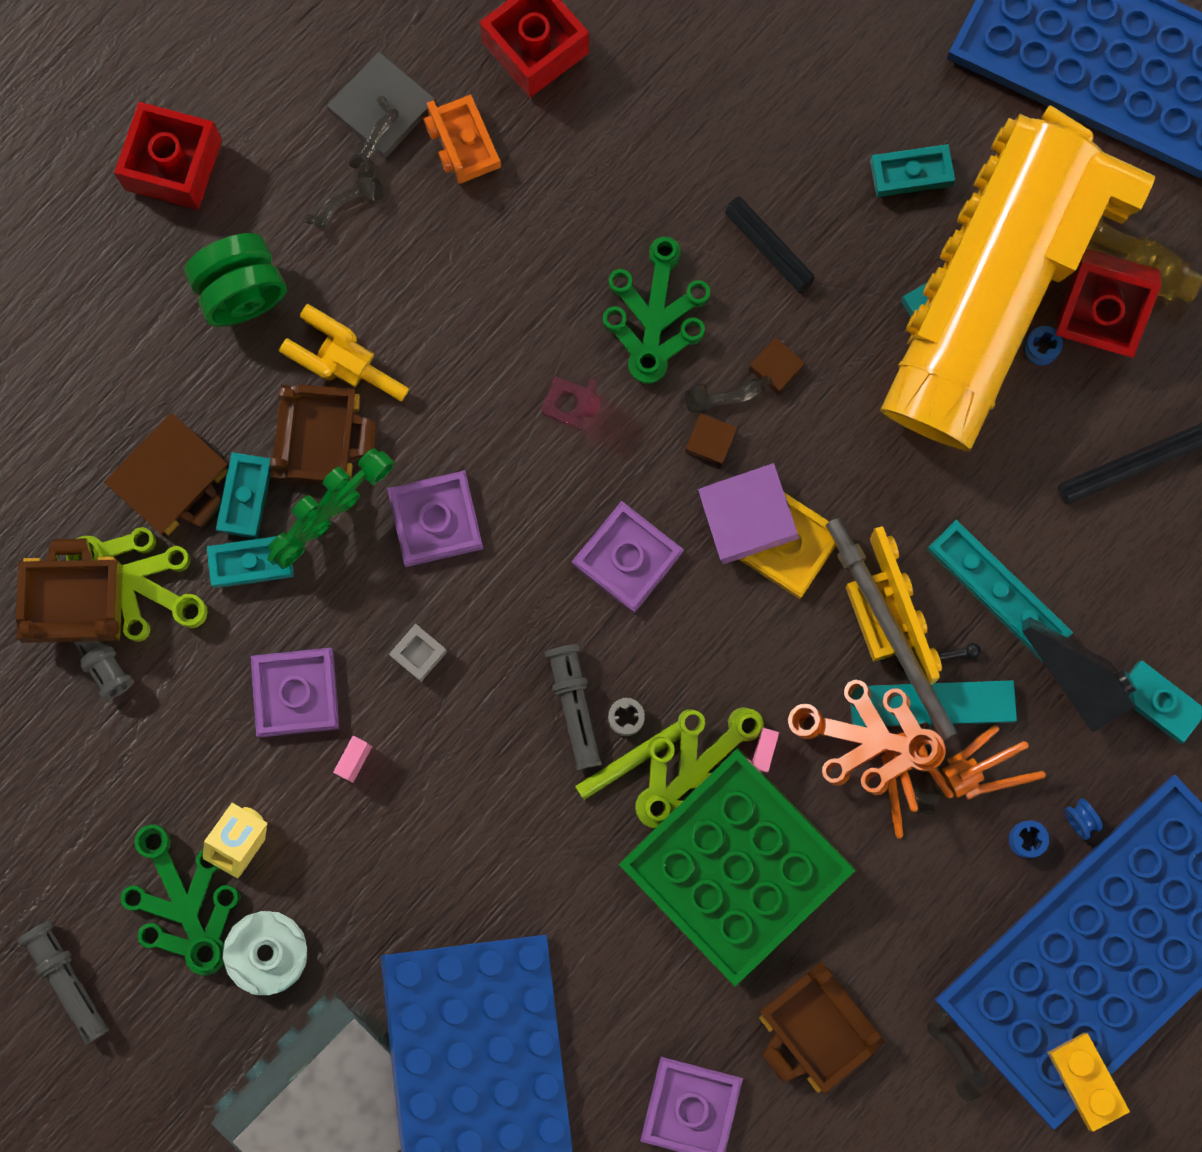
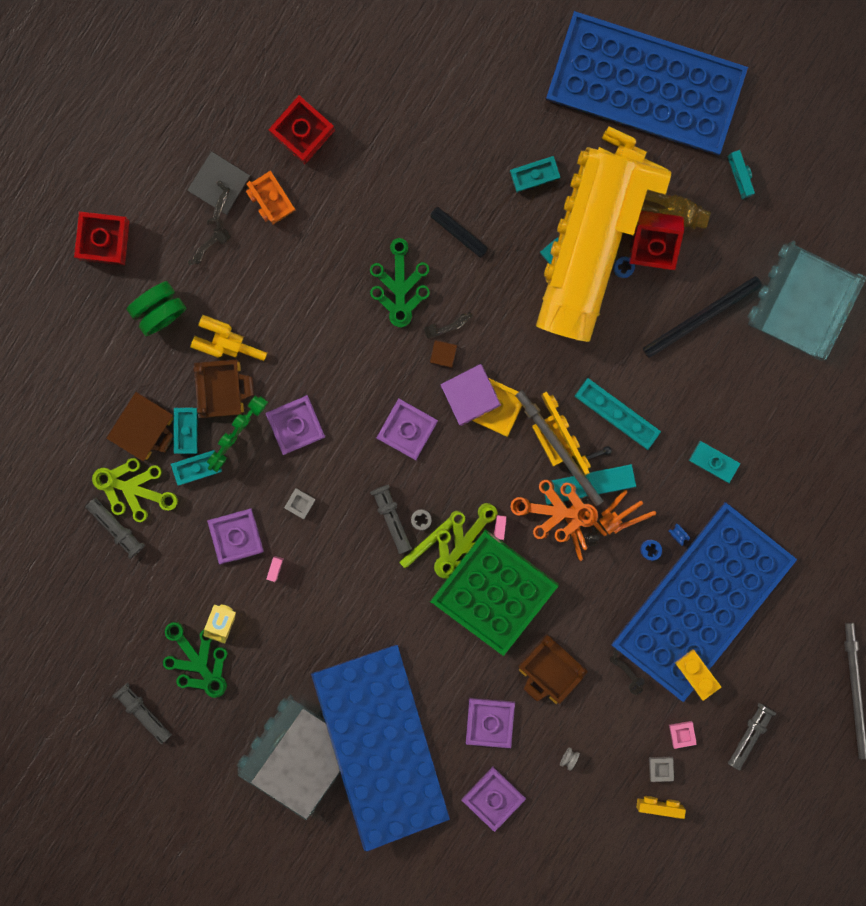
camera: 10 degrees left, 10 degrees up
(69, 597) = (100, 507): reddish brown piece -> none
(287, 959) = (259, 680): light aqua plate -> none
(587, 402) = (369, 345): clear pink bracket -> none
(777, 363) = (474, 304): reddish brown tile -> none
(1085, 677) = (669, 457): black slope -> none

